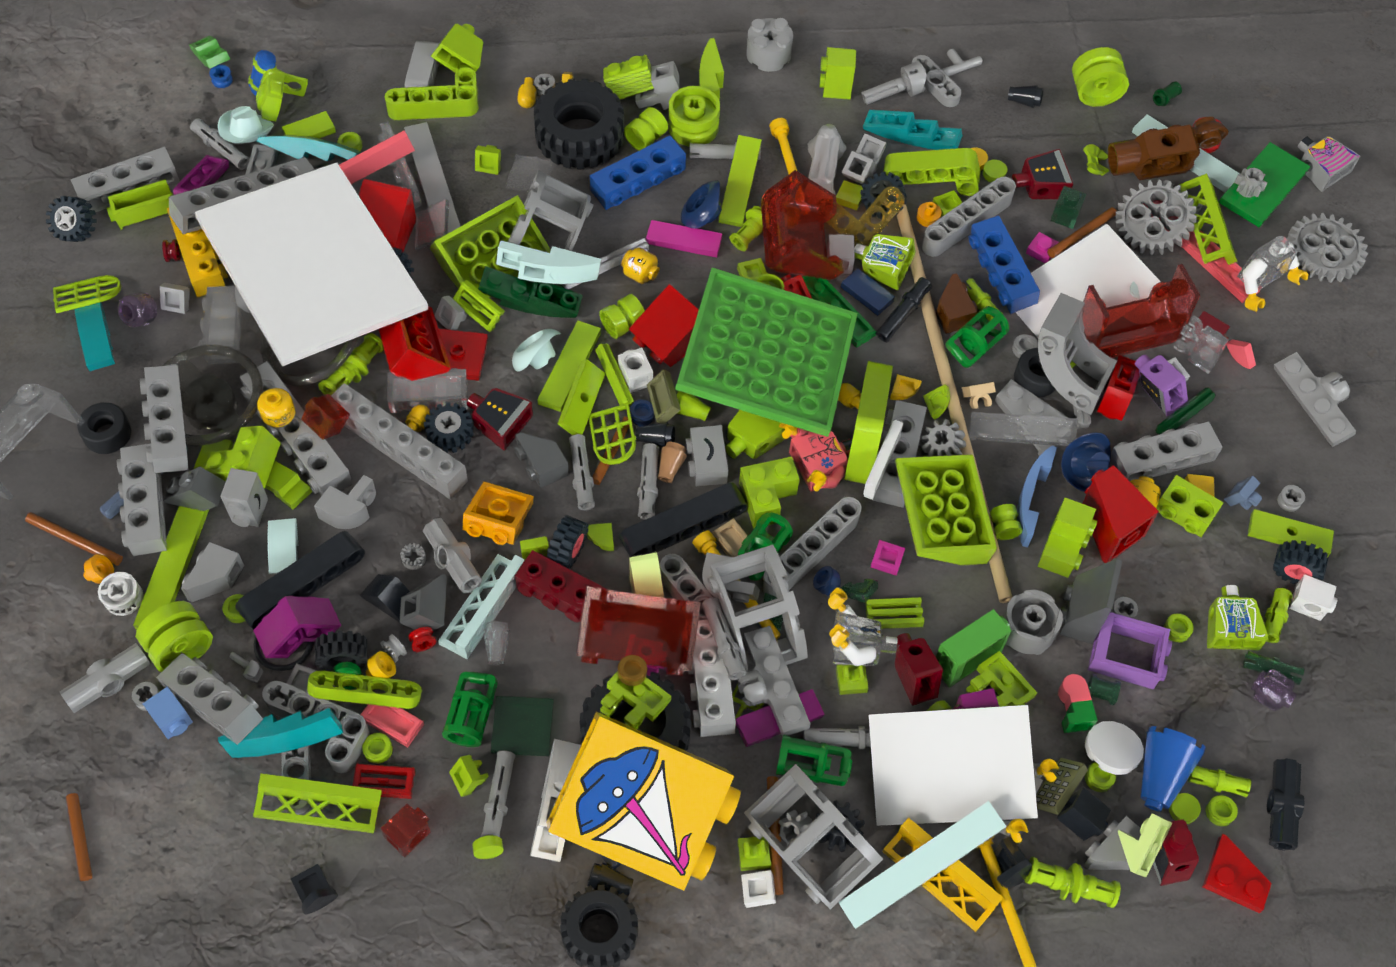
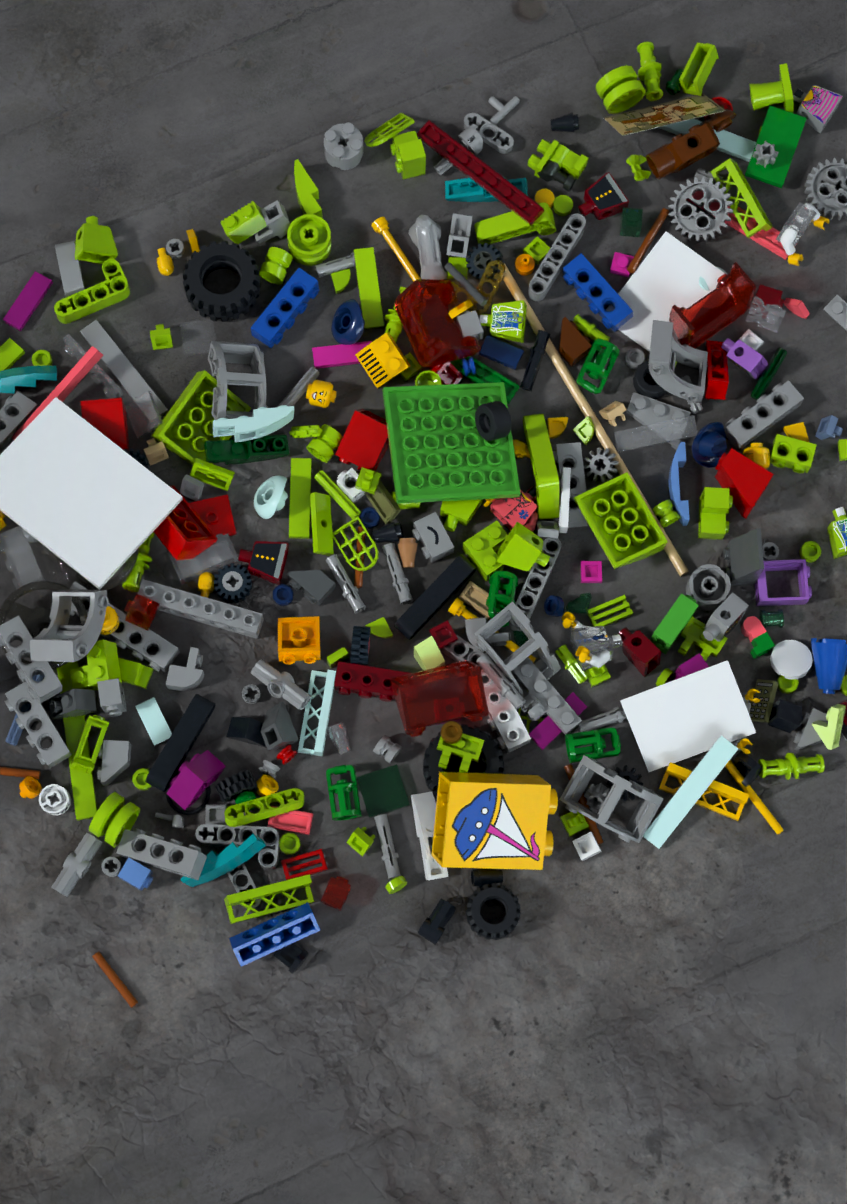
camera: 20 degrees left, 15 degrees up
(183, 562) = (78, 759): none -> lime window
(221, 396) = (52, 642): none -> light grey window
(301, 851) = (274, 934): none -> blue brick
(363, 85) = (27, 301): none -> magenta tile
(426, 266) = (155, 452): none -> tan tile
(502, 461) = (283, 595): none -> dark blue tile
(513, 920) = (435, 924): none -> black piece
(549, 675) = (387, 749): none -> light grey wheel
(606, 295) = (306, 431): none -> lime axle
(654, 365) = (368, 480): none -> lime tile
(673, 560) = (443, 634): none -> dark red plate
(713, 166) = (340, 280): none -> lime tile
(726, 248) = (382, 360): none -> yellow slope
(810, 495) = (522, 549): none -> lime torso
(823, 289) = (468, 366): none -> blue bush
(823, 655) = (571, 664): none -> lime axle
(827, 43) = (389, 134): none -> lime window
(827, 230) = (460, 308): none -> yellow tile
(827, 339) = (493, 420): none -> black tyre
(849, 487) = (547, 529): none -> light grey tile
(852, 207) = (466, 284): none -> dark grey bar
(912, 107) = (480, 172): none -> dark red tile
(1004, 129) = (557, 158): none -> lime hips
(1042, 662) = (719, 623): none -> light grey torso
(1140, 73) = (650, 71): none -> lime piece
(1145, 110) = (663, 114): none -> sticker
(1196, 86) = (695, 71): none -> lime window
(1278, 130) = (774, 92): none -> lime plant

